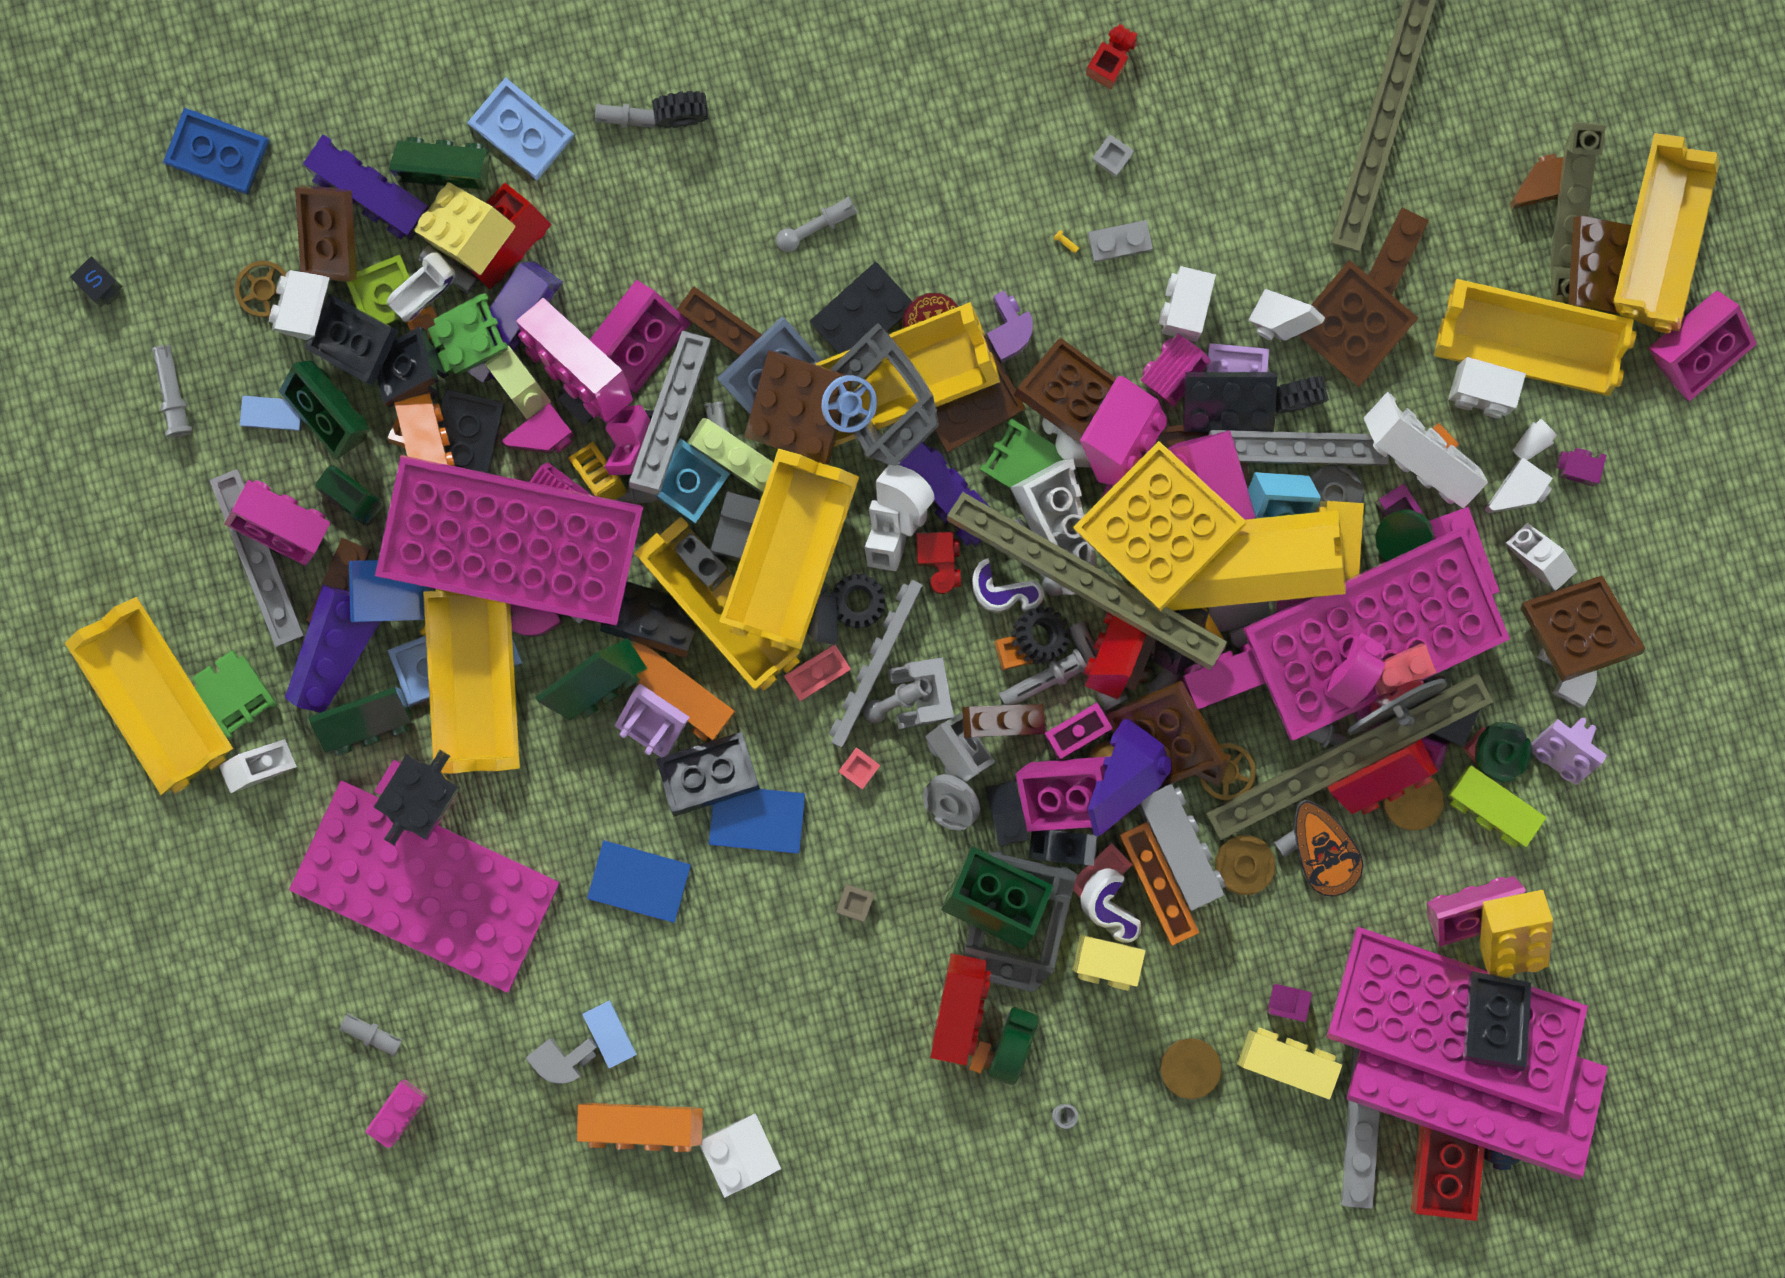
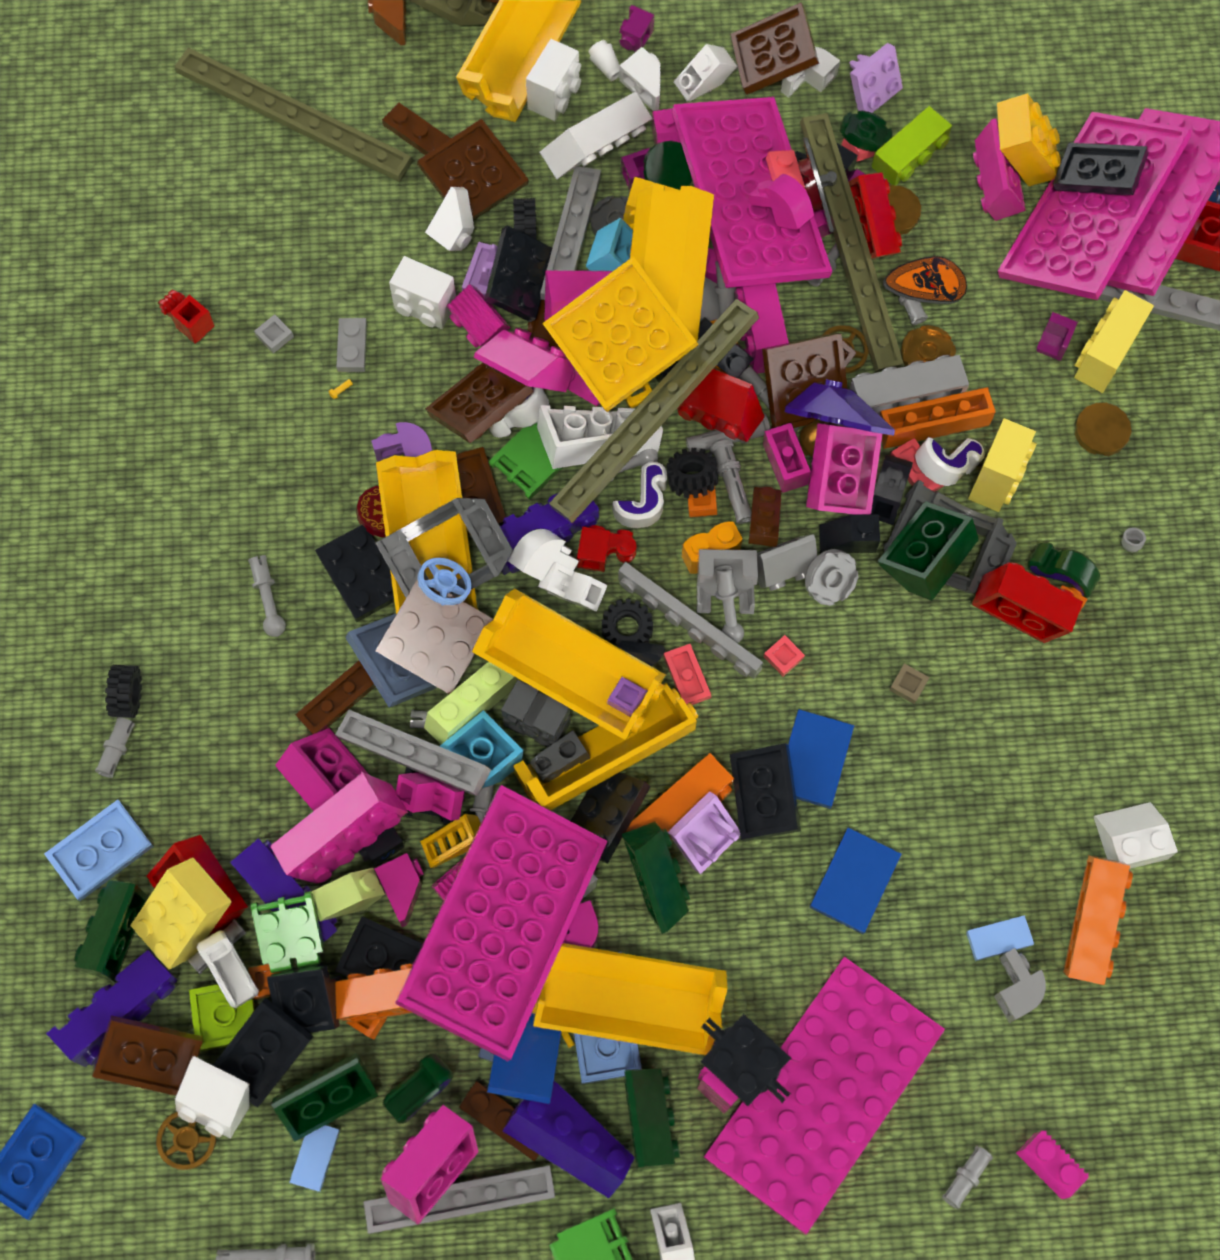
camera: 80 degrees left, 15 degrees down
(769, 615) = (626, 696): none -> medium lavender tile
(967, 679) = (721, 537): none -> light orange brick

